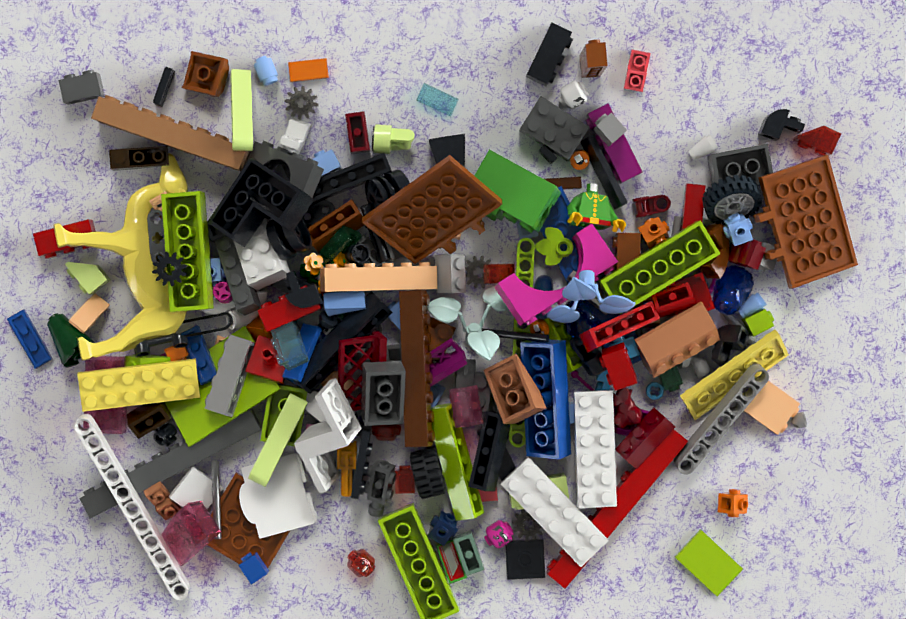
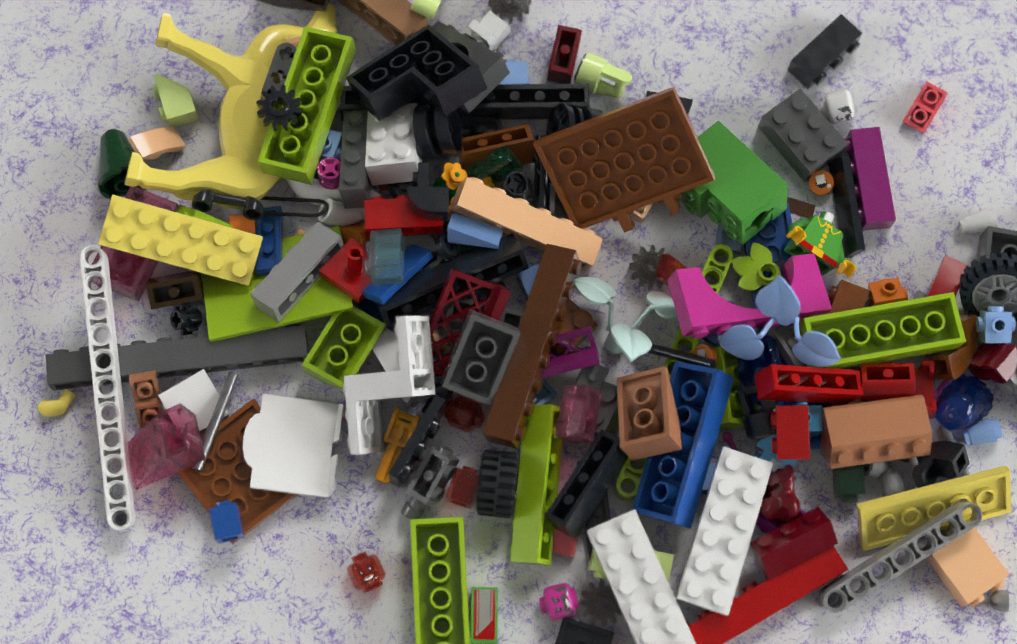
camera: 15 degrees right, 15 degrees down
(29, 339) = (72, 150): blue tile -> none
(46, 240) = (144, 54): red brick -> none
(103, 528) = (56, 407): none -> light yellow arm
(277, 440) = (324, 368): yellowish green beam -> none
(437, 99) = (672, 56): clear light blue tile -> none
(442, 527) = (490, 564): dark blue brick -> none
(450, 273) = (616, 255): light grey brick -> none
(468, 553) = (511, 609): sand green brick -> none
(547, 154) = (784, 162): black tile -> none
(593, 59) = (880, 63): dark orange brick -> none
(609, 128) = (874, 148): light grey brick -> none
(649, 205) = (887, 265): dark red piece -> none
(654, 397) = (820, 501): dark azure bush -> none
(758, 322) = (985, 455): lime brick -> none

